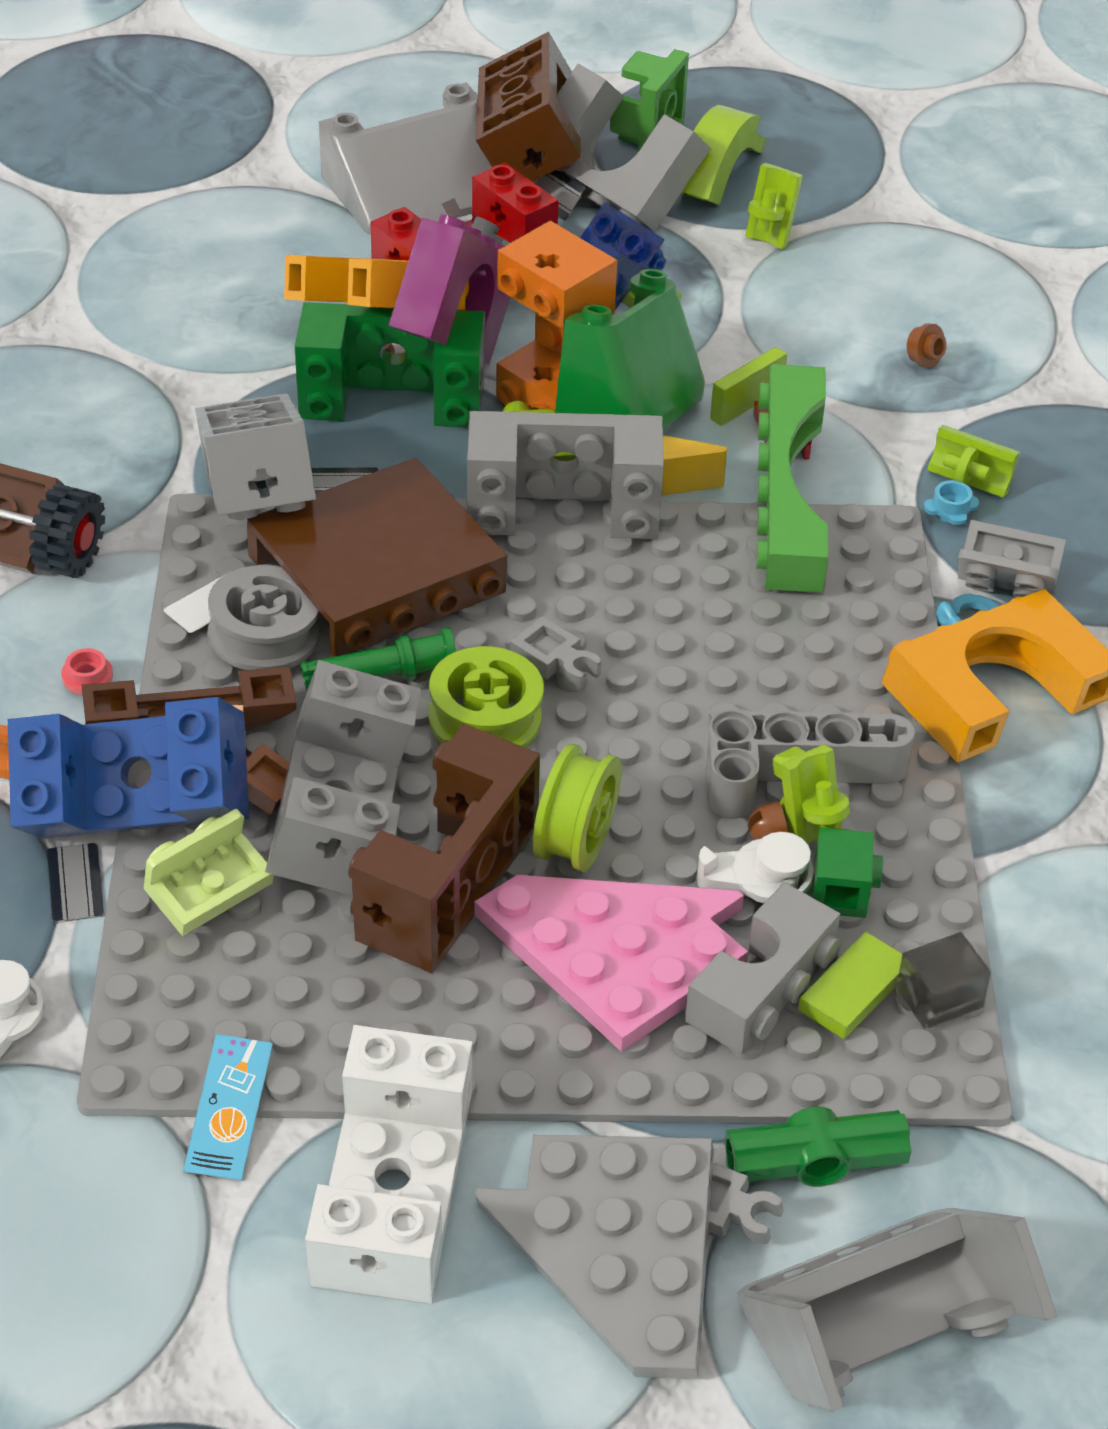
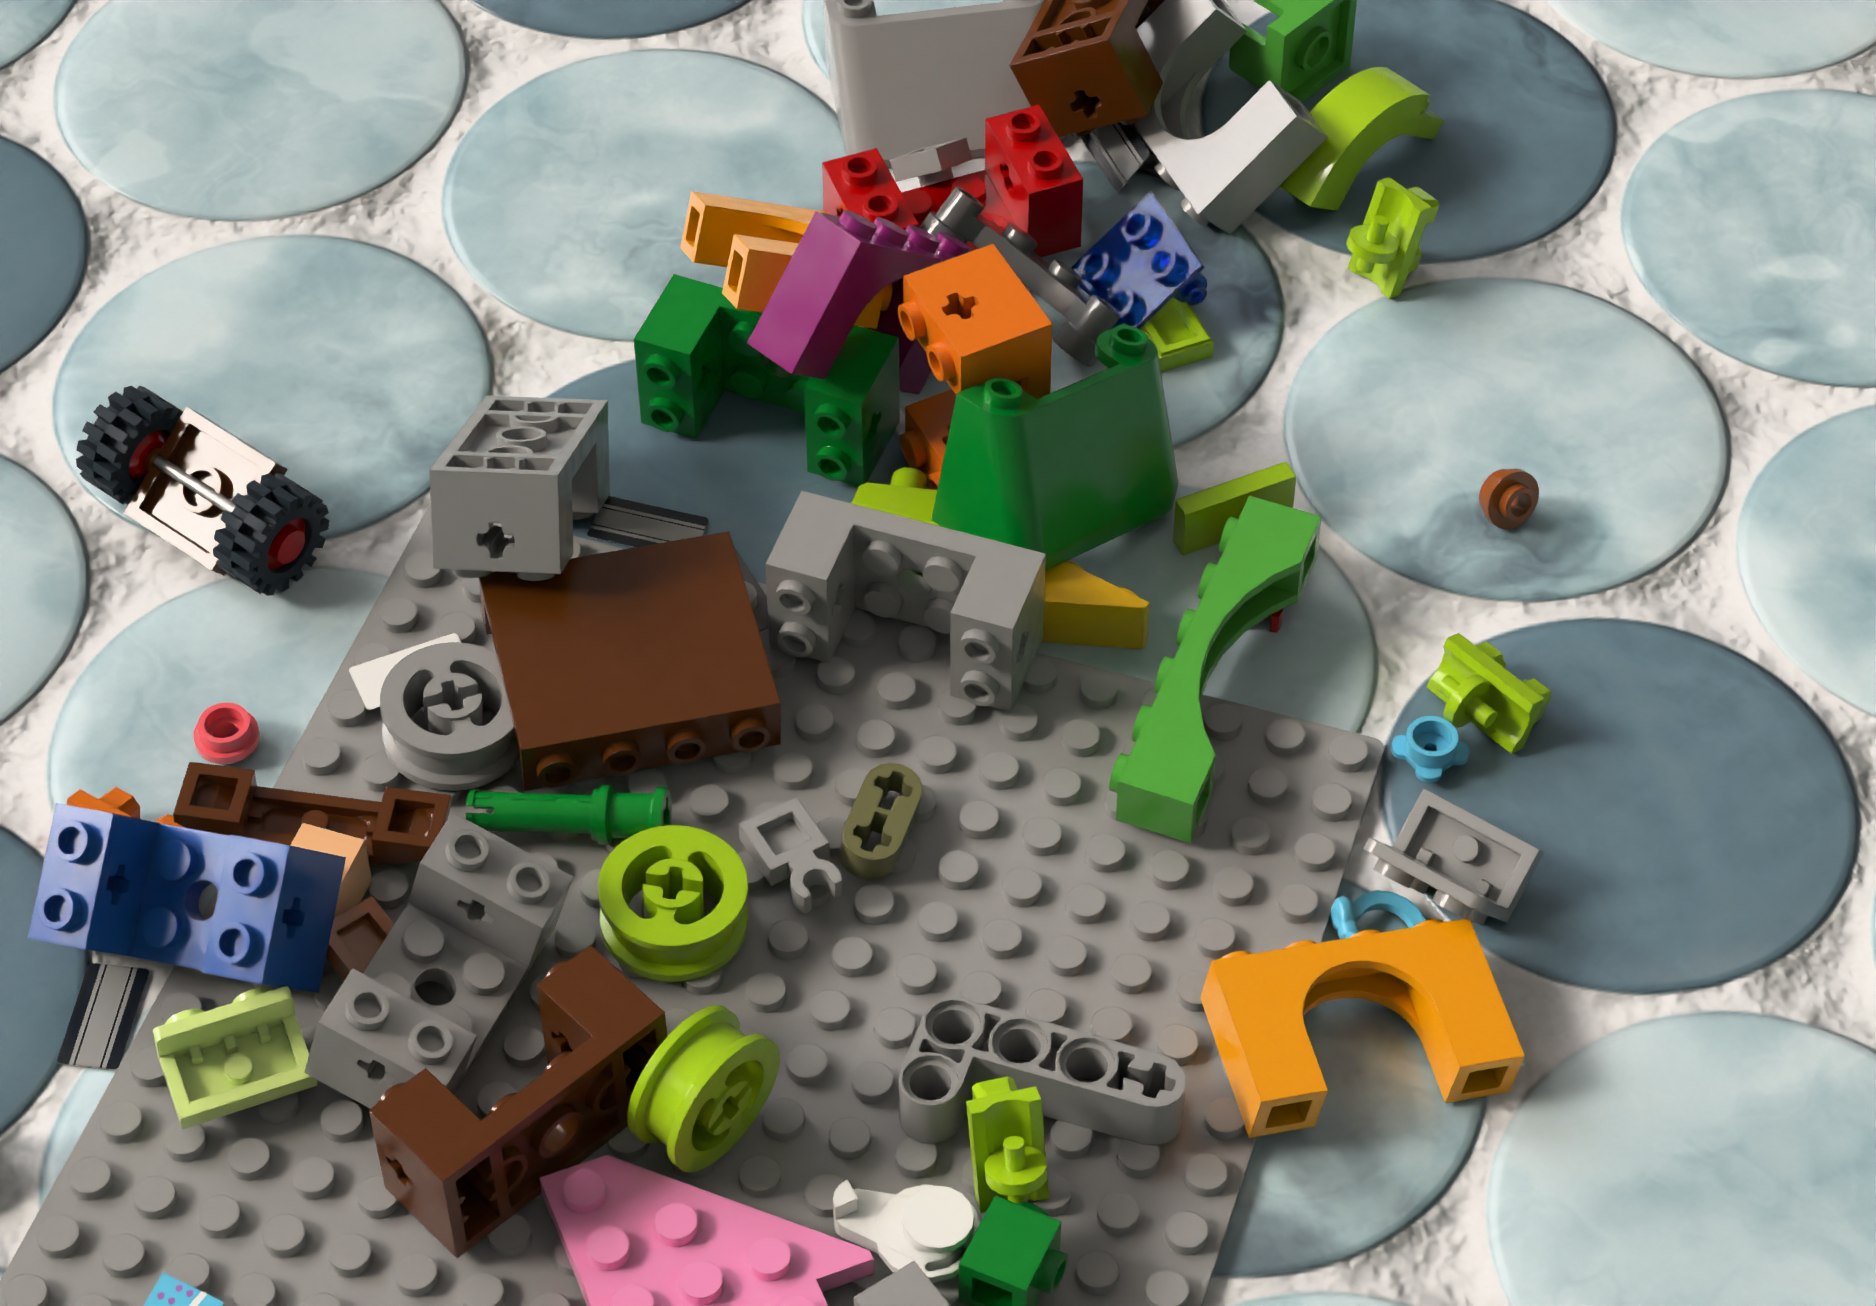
camera: 20 degrees right, 5 degrees up
(613, 622) = (869, 816): none -> olive beam
(766, 820) = (951, 1166): dark orange hinge -> none

